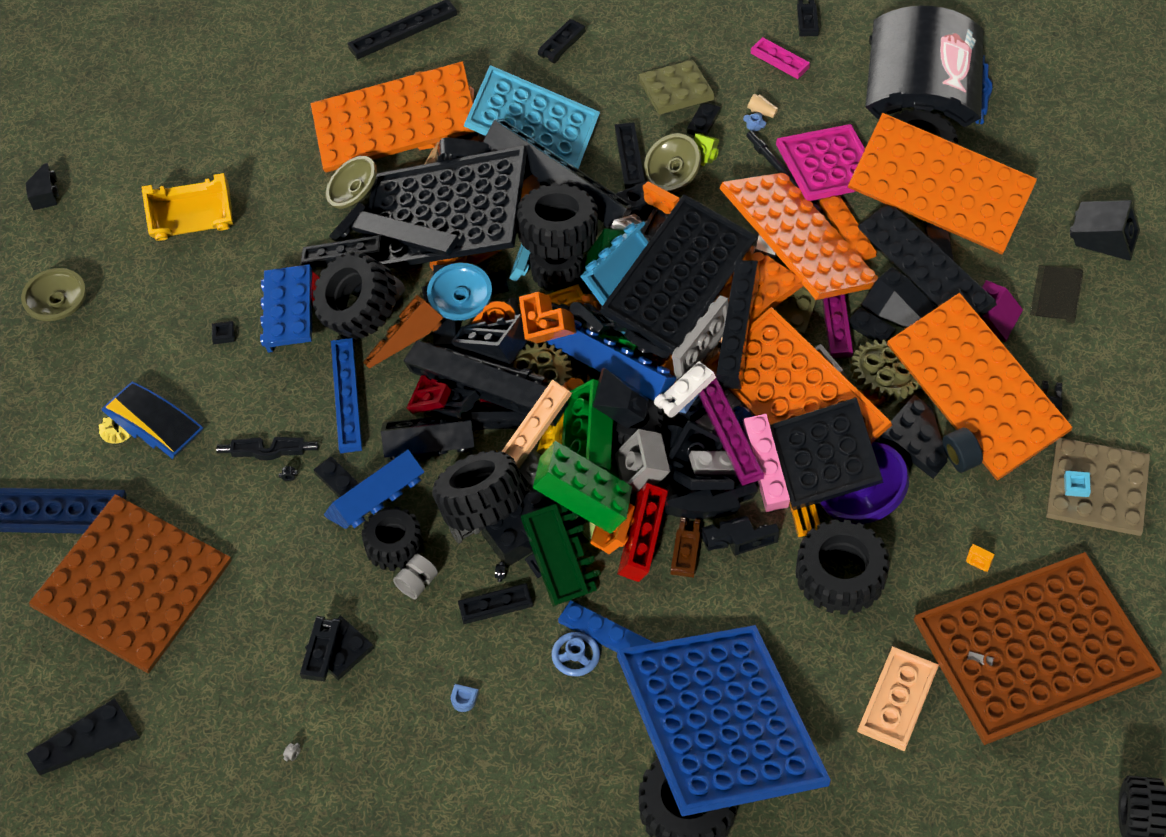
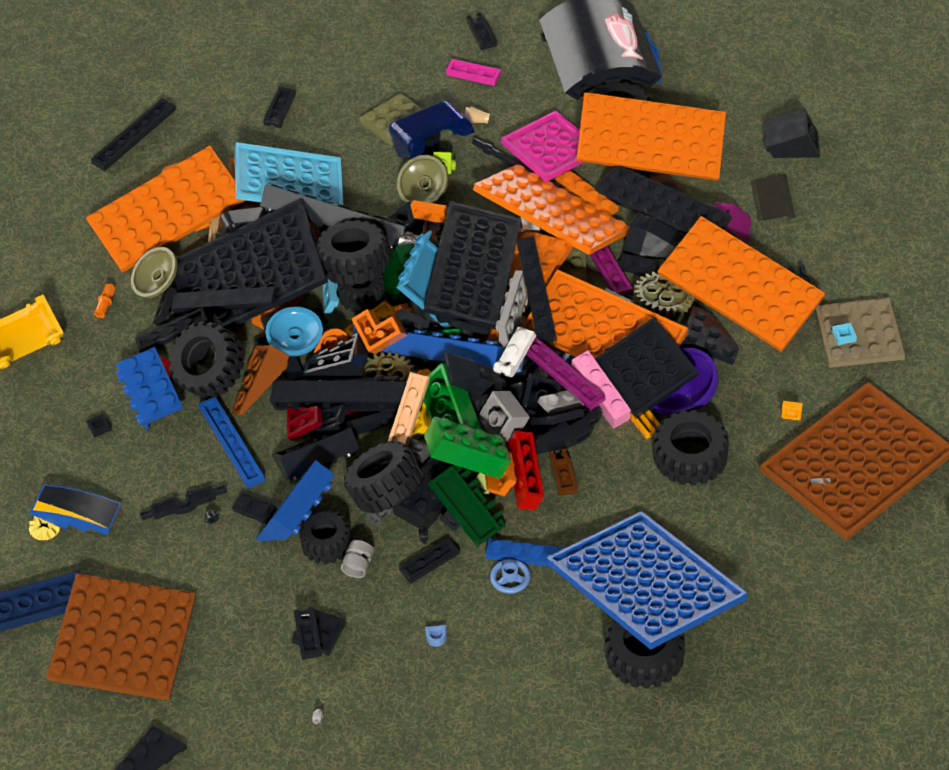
camera: 20 degrees left, 5 degrees down
(291, 197) = (104, 300): none -> orange axle
(629, 154) = (381, 185): black plate -> none
(700, 99) = (410, 130): none -> clear blue windscreen
(739, 535) = (601, 450): black plate -> none
(754, 121) = (478, 130): medium blue plate -> none
(898, 698) = (770, 529): light nougat tile -> none
(963, 449) = (748, 335): black wheel -> none

